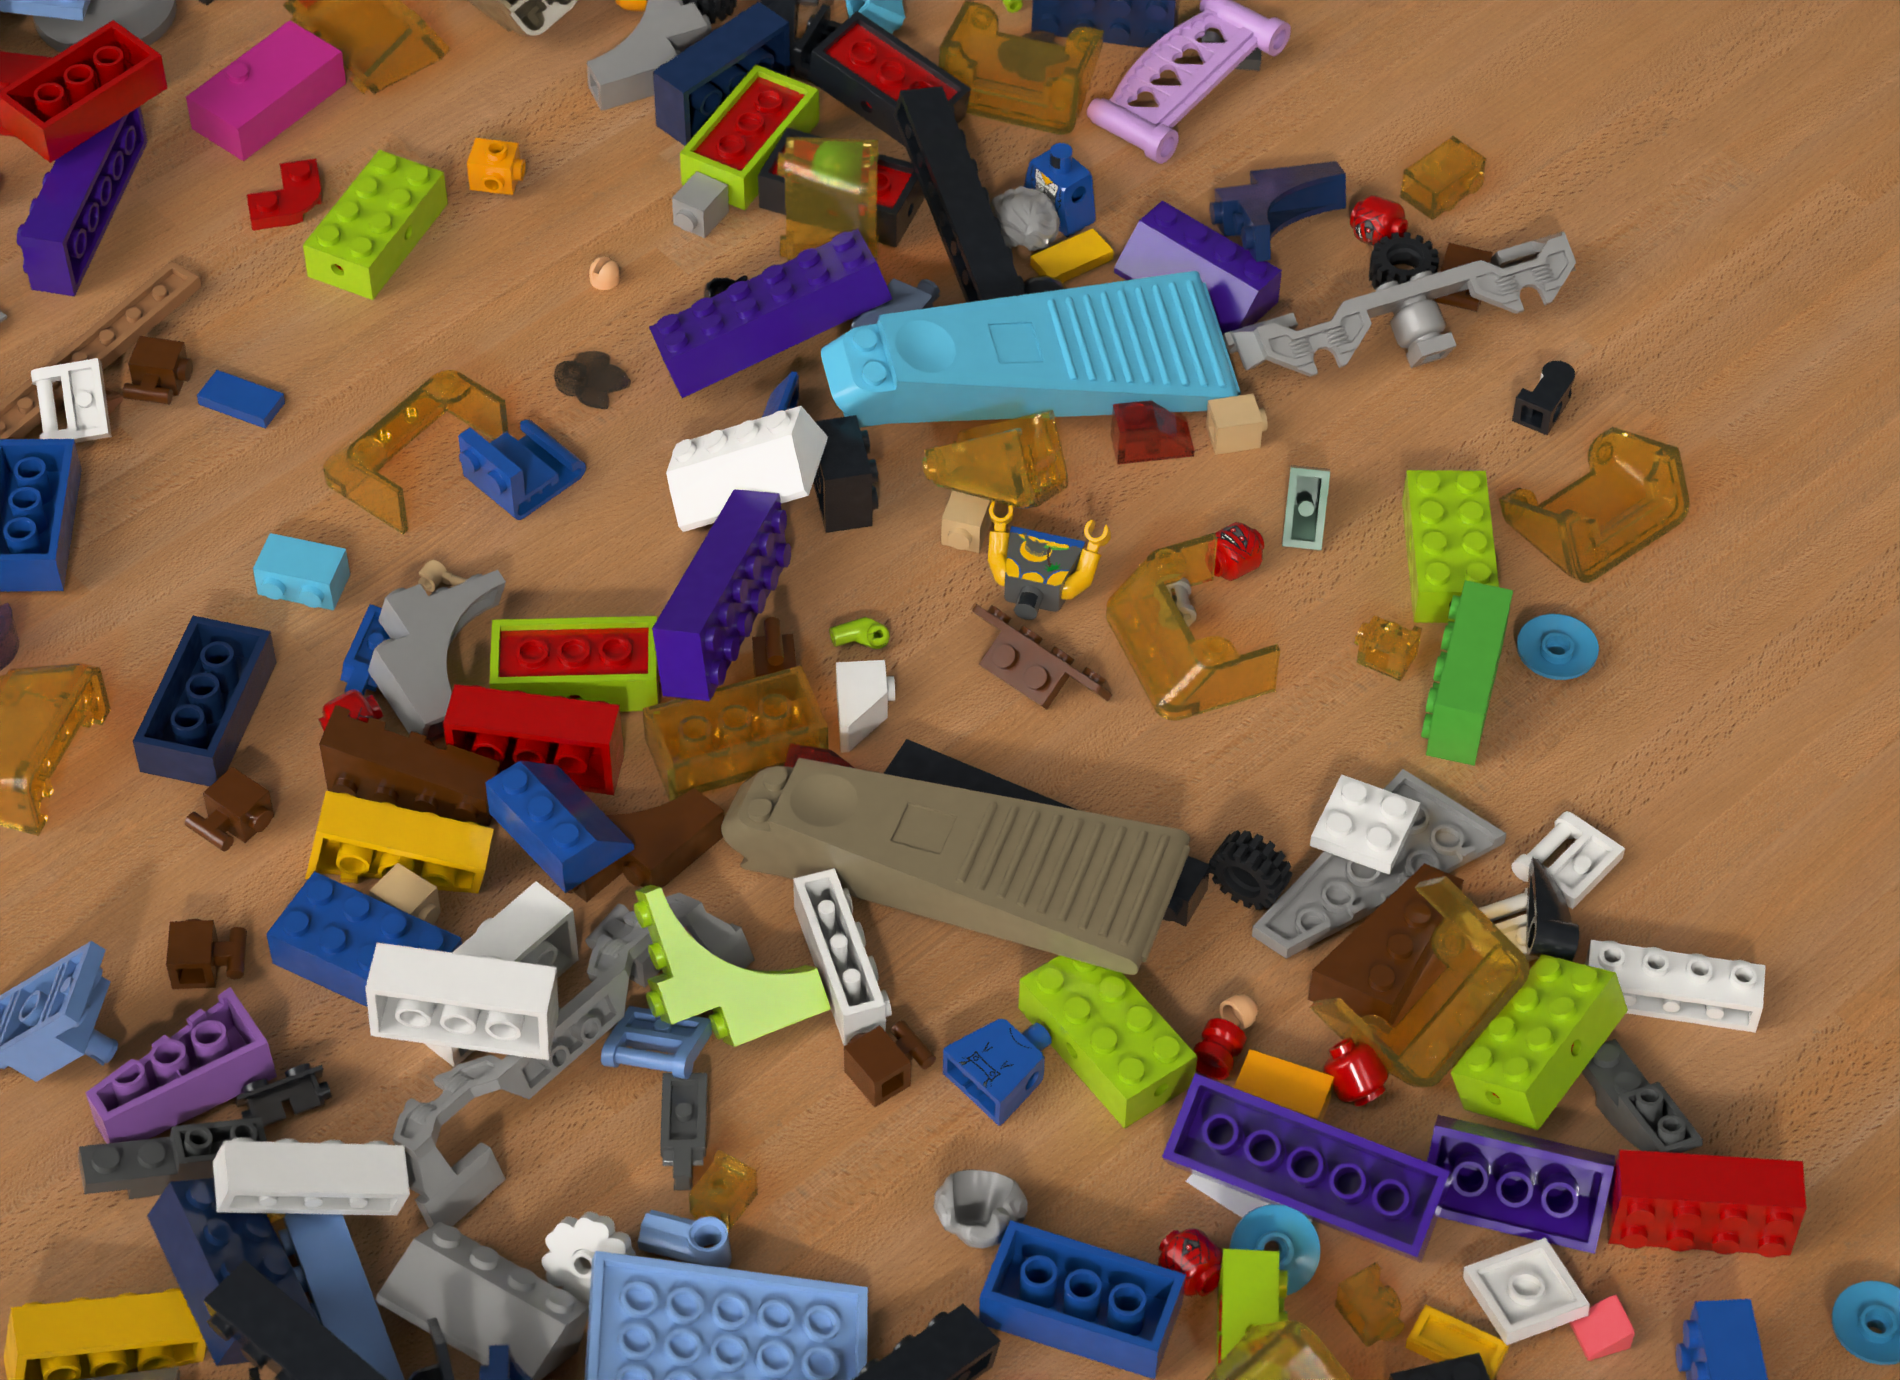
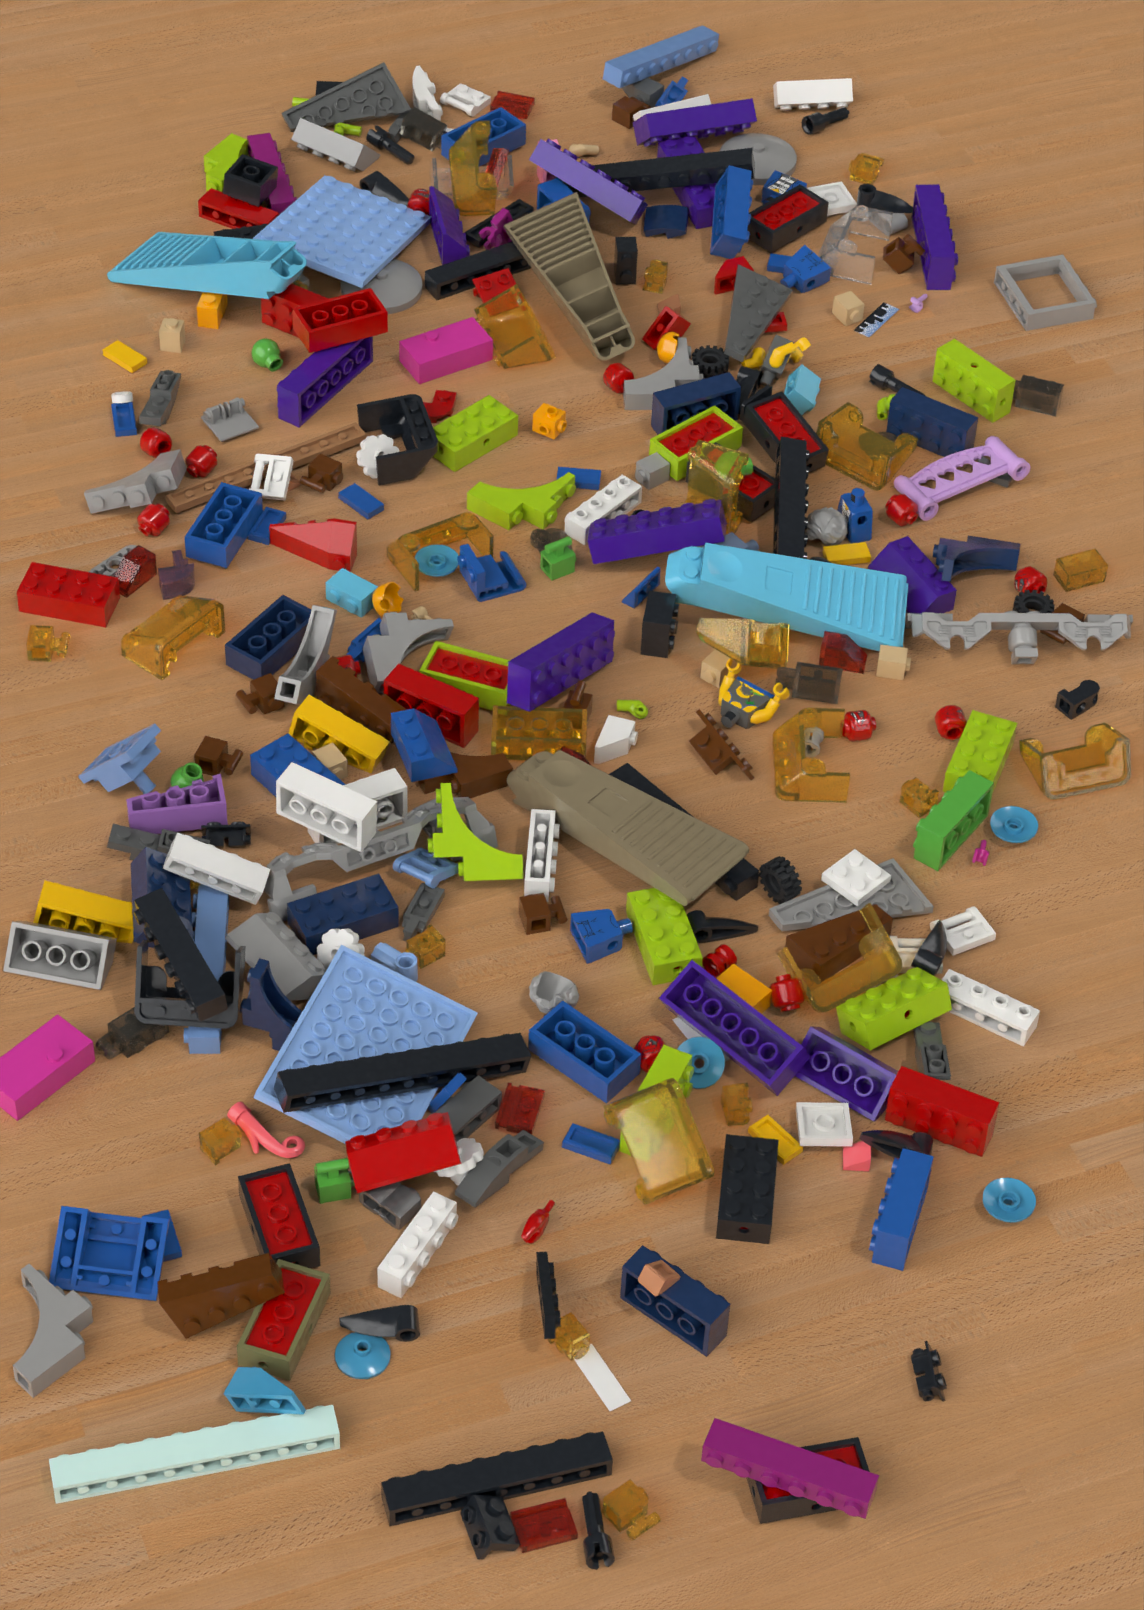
camera: 20 degrees right, 5 degrees down
(99, 491) = (260, 529): none -> blue tile
(168, 1011) = (186, 774): none -> bright green piece
(217, 498) = (324, 543): none -> wedge
(239, 311) = (373, 447): none -> white plant
(265, 232) = (404, 418): none -> black windscreen
(294, 726) = (300, 677): none -> light grey arch
(369, 568) = (386, 598): none -> light orange hair
(421, 468) = (437, 560): none -> dark azure dish
(499, 334) = (509, 506): none -> lime arch
(562, 1169) = (358, 905): none -> dark blue brick
(568, 57) = (615, 376): none -> red head
(579, 251) = (583, 477): none -> blue tile
(608, 273) = (584, 491): light nougat hinge -> none
(620, 407) = (558, 559): none -> bright green brick
(652, 292) = (613, 500): none -> white brick
(759, 455) = (615, 599): white slope -> none
(1124, 157) = (901, 510): none -> red head
(1131, 498) = (812, 682): none -> clear smoke brick
(1186, 986) = (717, 928): none -> black piece
(1239, 1010) = (741, 947): light nougat hinge -> none
(1306, 507) = (909, 714): sand green slope -> none
(1376, 500) = (950, 722): none -> red head
(1531, 715) = (981, 854): none -> dark pink hand
(1666, 1284) = (893, 1142): none -> black piece

